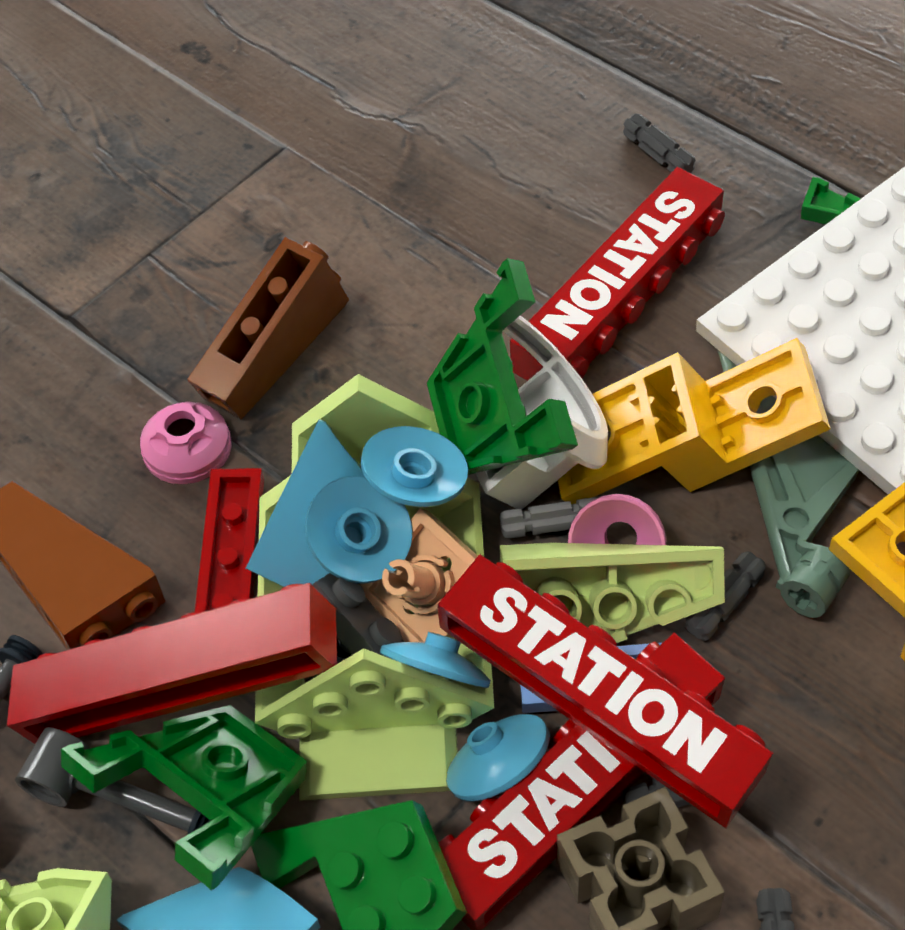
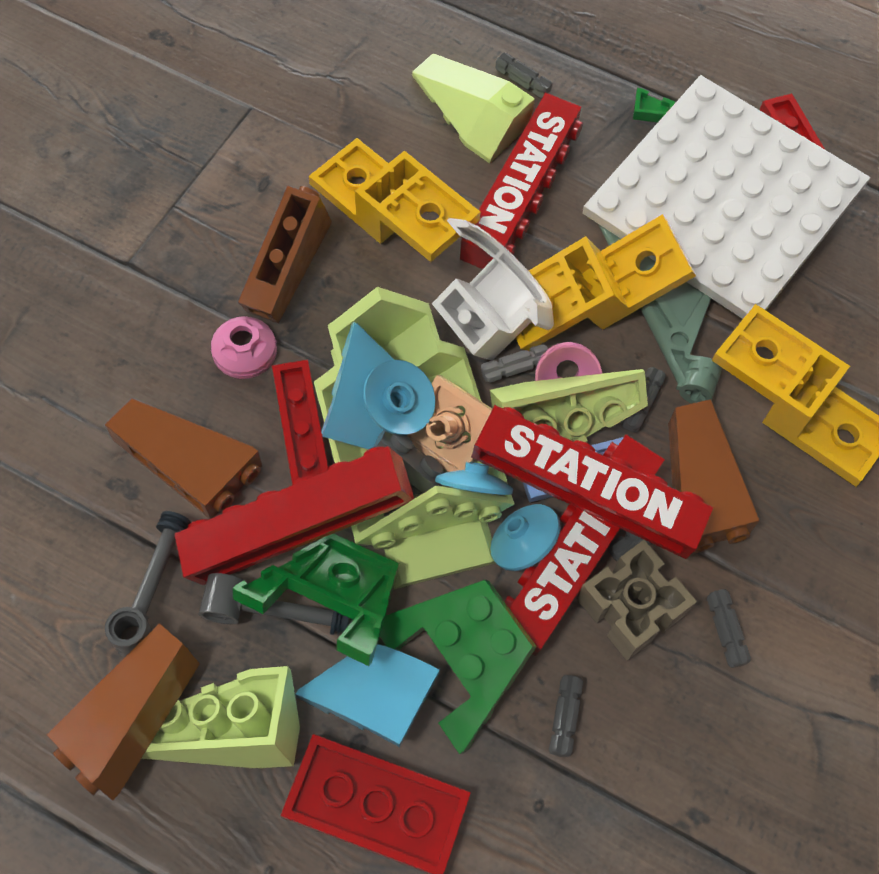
camera: 20 degrees left, 10 degrees up
(414, 466) = (427, 346): medium azure dish -> none
(423, 271) = (393, 198): none -> yellow bracket
(477, 390) = (460, 289): green wing -> none
(582, 175) = (479, 105): none -> yellowish green wedge
(799, 719) = (707, 467): none -> dark orange slope

